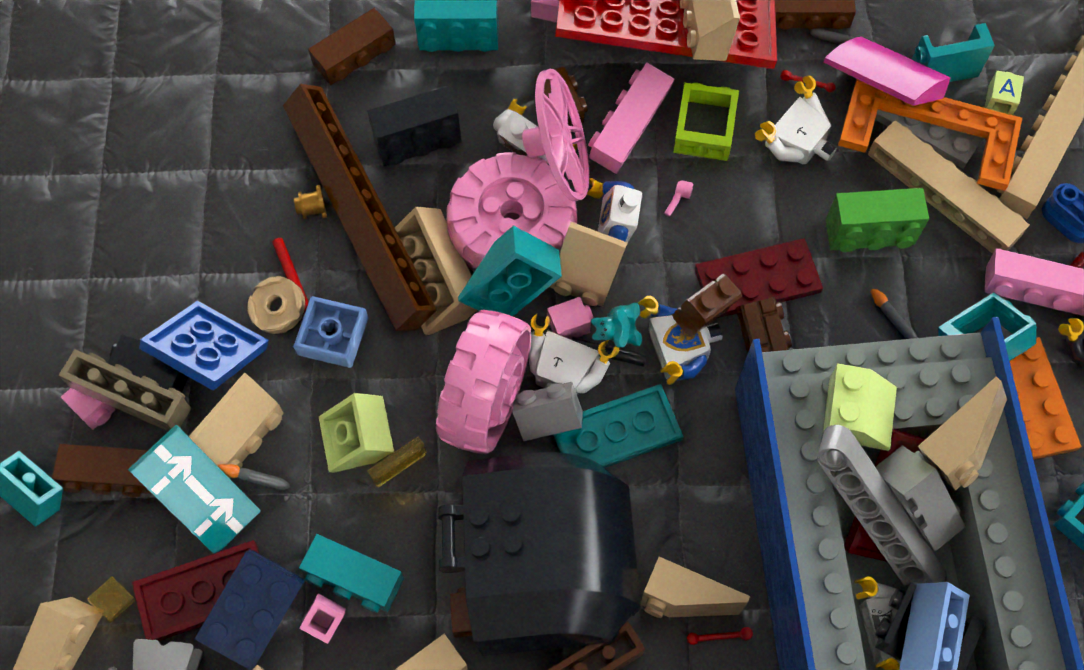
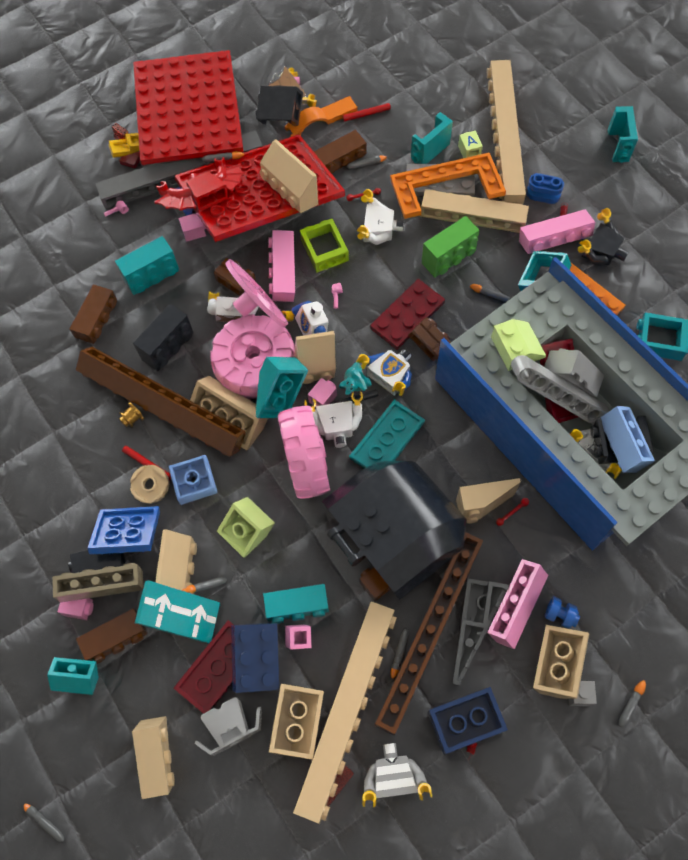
camera: 30 degrees left, 0 degrees up
(111, 599) = (167, 705): clear yellow plate -> none
(397, 462) = (280, 527): clear yellow tile -> none
(547, 411) = (346, 449): light grey brick -> none
(707, 305) = (394, 341): reddish brown brick -> none
(888, 71) = (405, 164): slope -> none
(964, 439) = (580, 329): tan slope -> none

